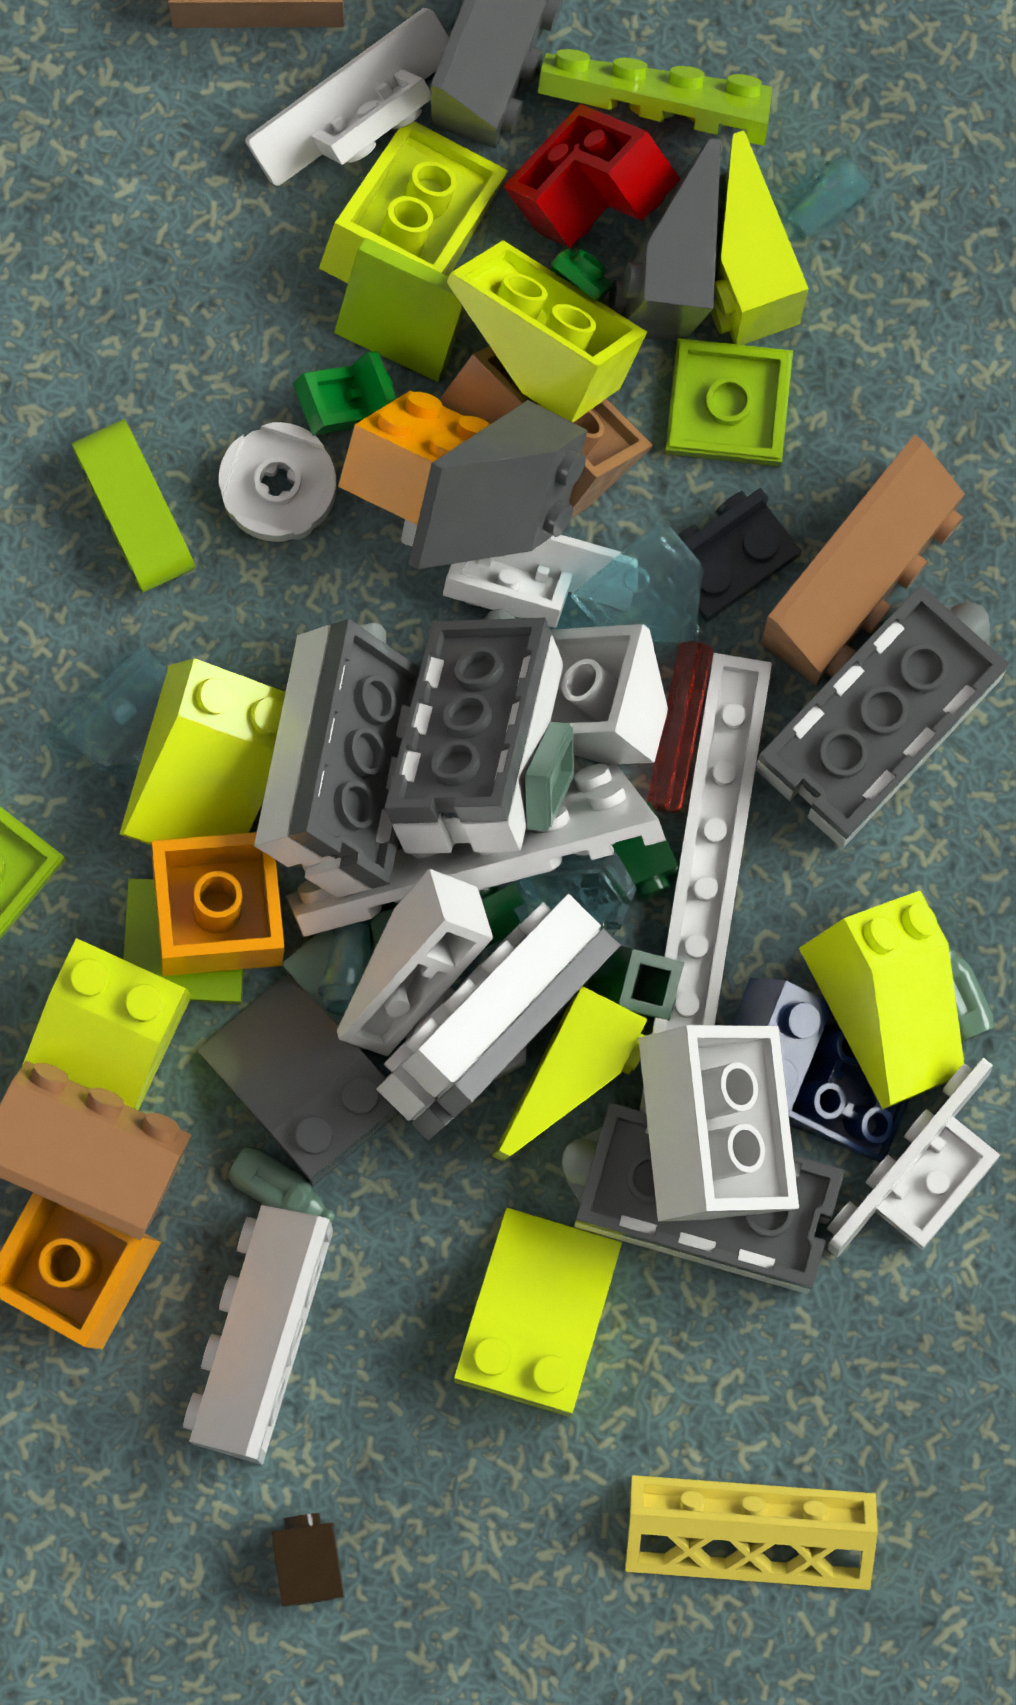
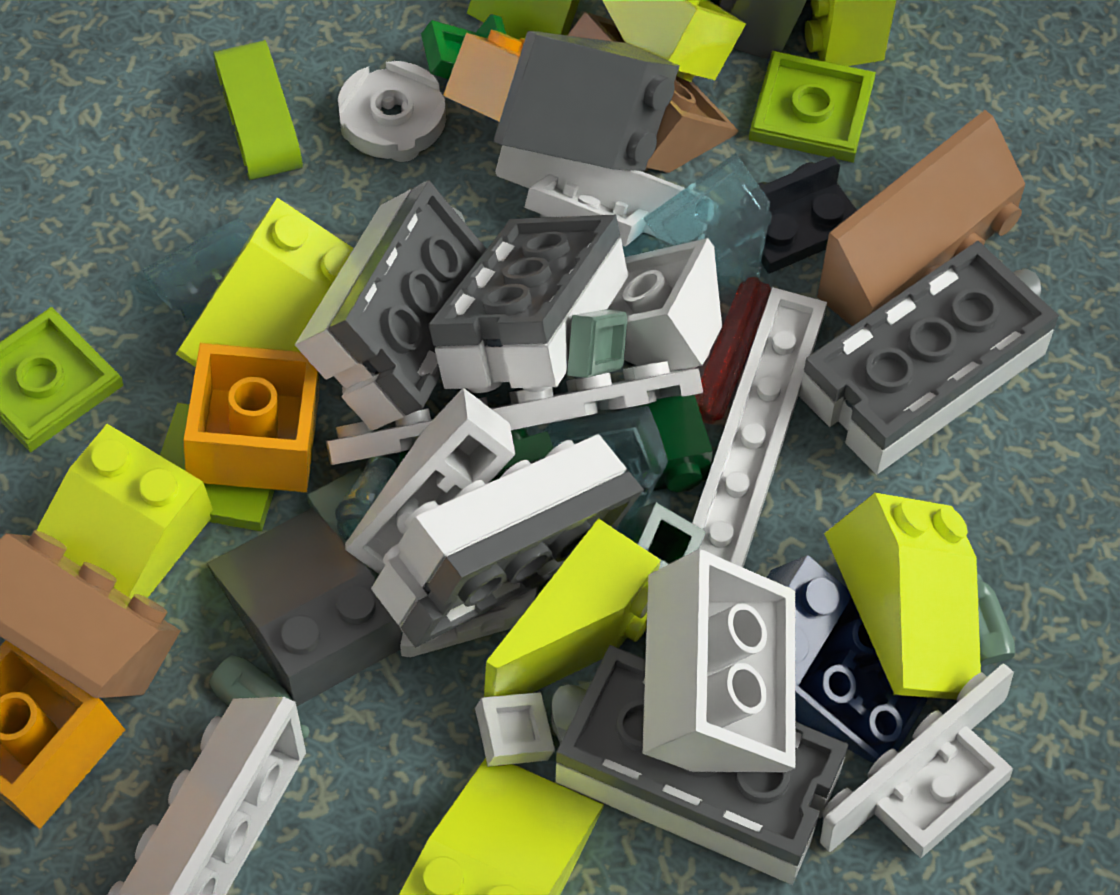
camera: 10 degrees right, 20 degrees down
(528, 1184) = (514, 729): none -> white plate

